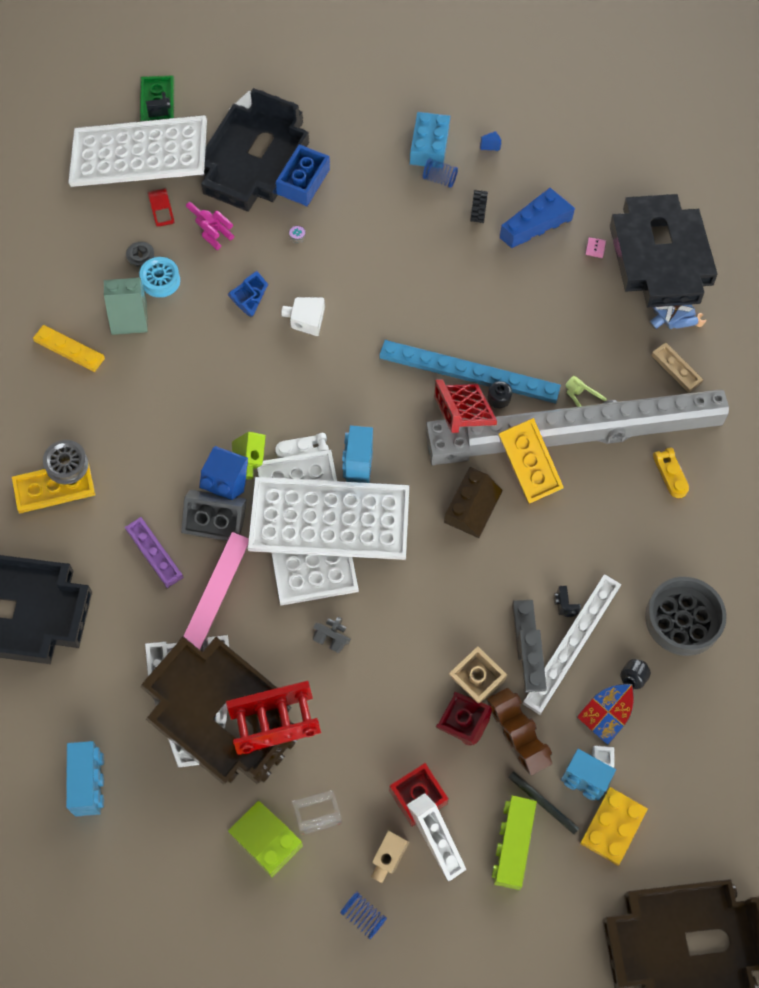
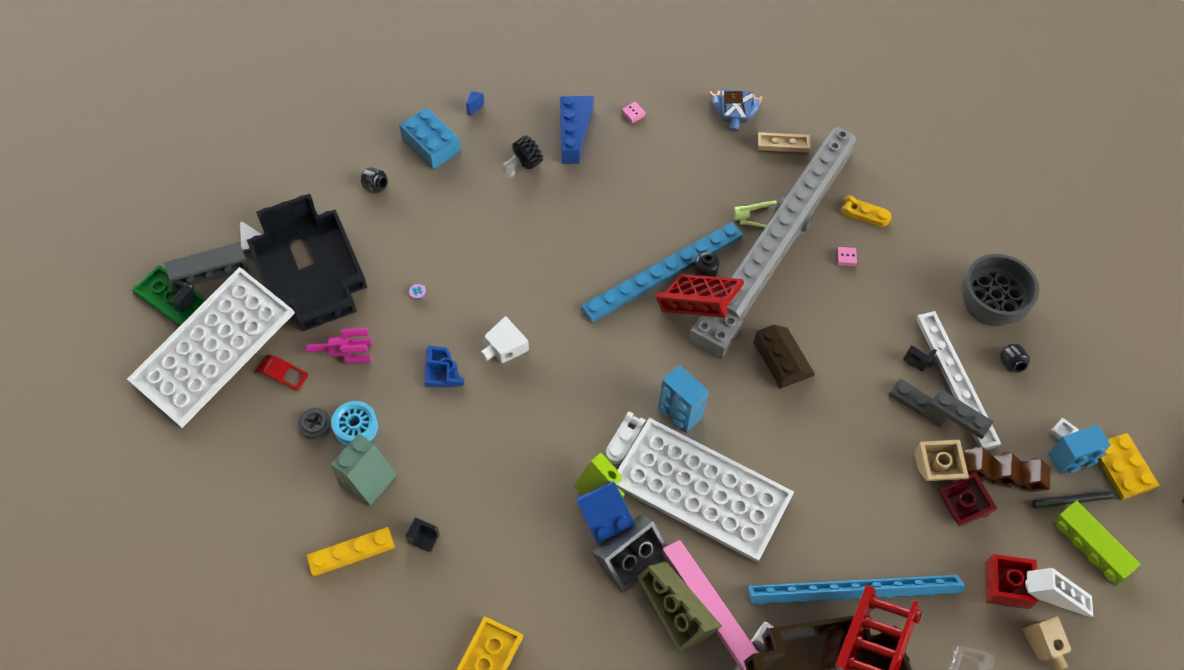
camera: 50 degrees left, 5 degrees down
(61, 472) = (468, 617): flat silver wheel -> none
(114, 378) = (422, 534): none -> black panel
(154, 552) = (622, 628): medium lavender tile -> none
(194, 571) = (678, 607): none -> olive wedge
(195, 99) = (206, 265): none -> dark grey brick
(303, 175) = (371, 244): blue brick -> none
(320, 690) = (854, 589): none -> dark azure plate
(323, 631) = (827, 540): dark grey hips -> none
(329, 518) = (714, 465): white plate -> none
(360, 136) = (374, 180): none -> black head
(430, 162) = (457, 160): blue piece -> none
(459, 206) = (508, 166): none -> clear arm
(530, 460) = (787, 287): yellow plate -> none
(608, 711) = (1032, 398): shield -> none
(612, 487) = (846, 256): none -> bright pink tile
(664, 272) = (711, 81): black panel -> none

